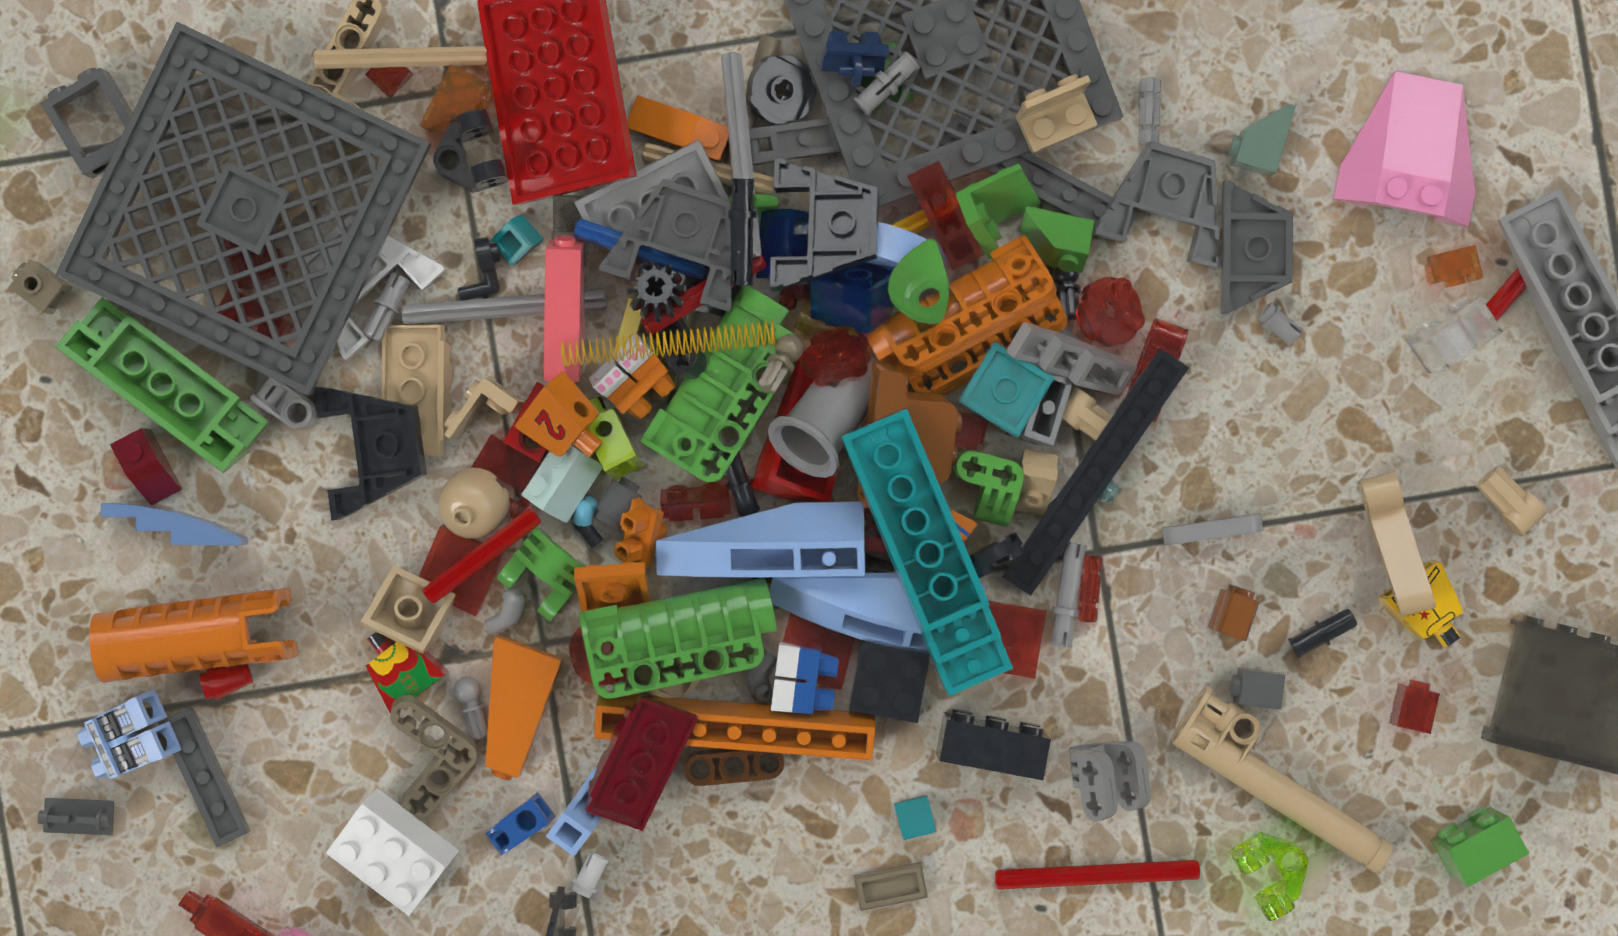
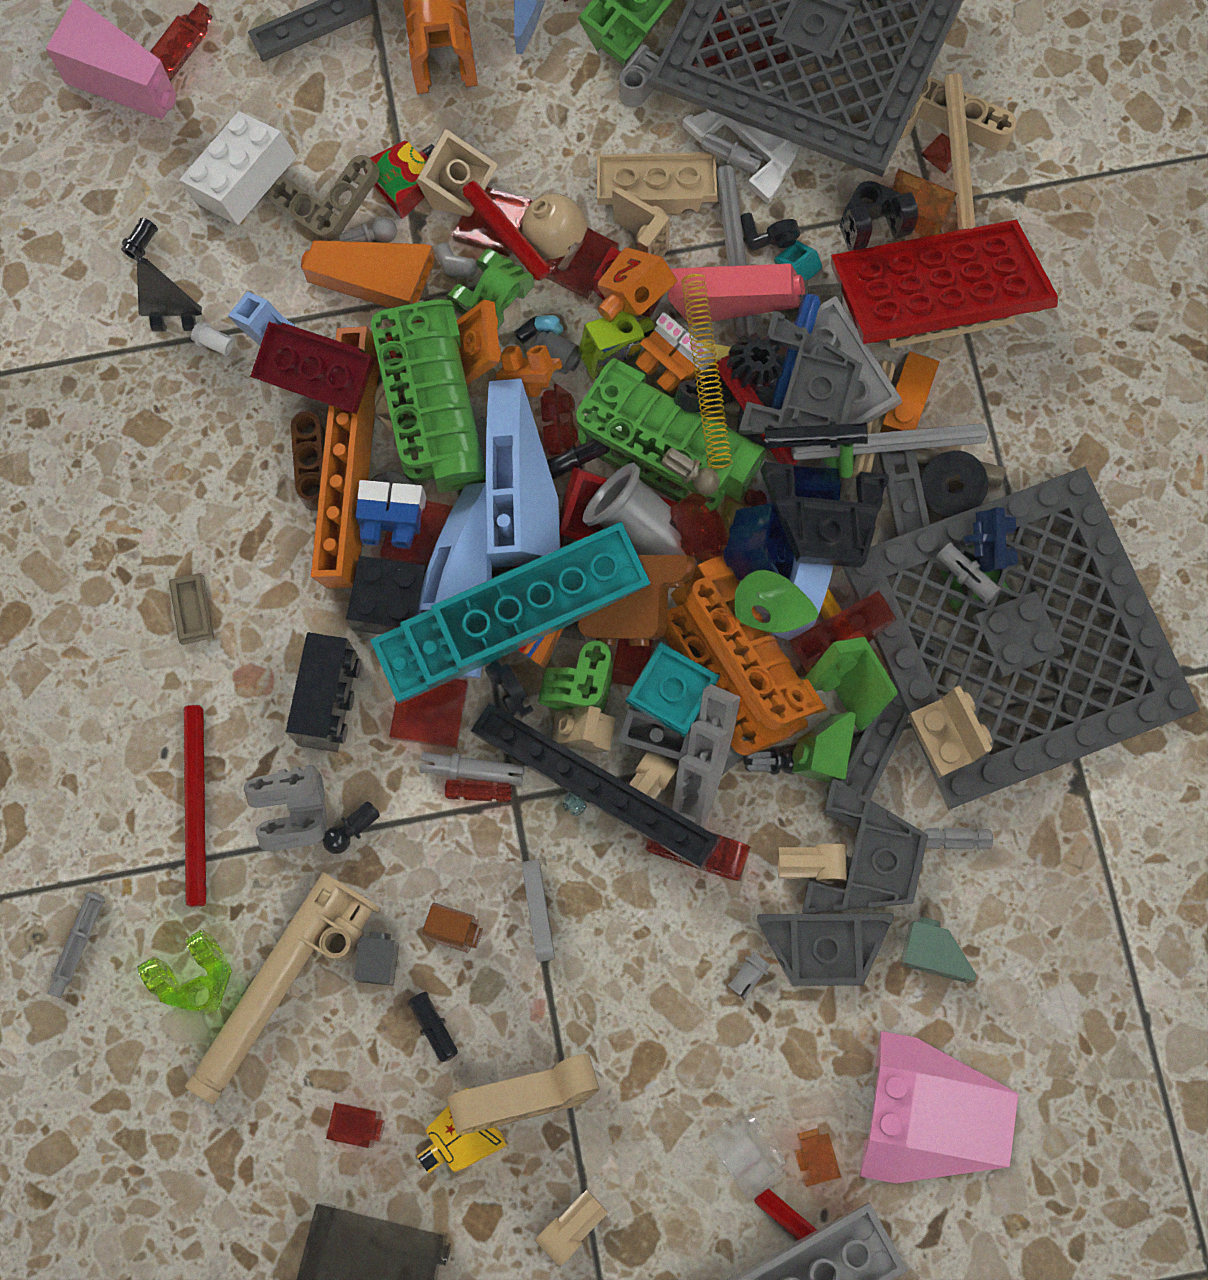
camera: 90 degrees right, 15 degrees down
(224, 680) = (394, 33): red cone -> none
(385, 447) = (606, 152): black wing -> none
(520, 824) = (262, 277): blue leg -> none
(562, 483) = (571, 297): light aqua brick -> none
(915, 817) = (256, 629): teal slope -> none
(1127, 311) = (772, 808): clear red plate -> none
(1135, 728) = (338, 838): none -> black axle
(1172, 246) = (821, 863): none -> tan piece
(1479, 845) = (207, 1193): bright green brick -> none

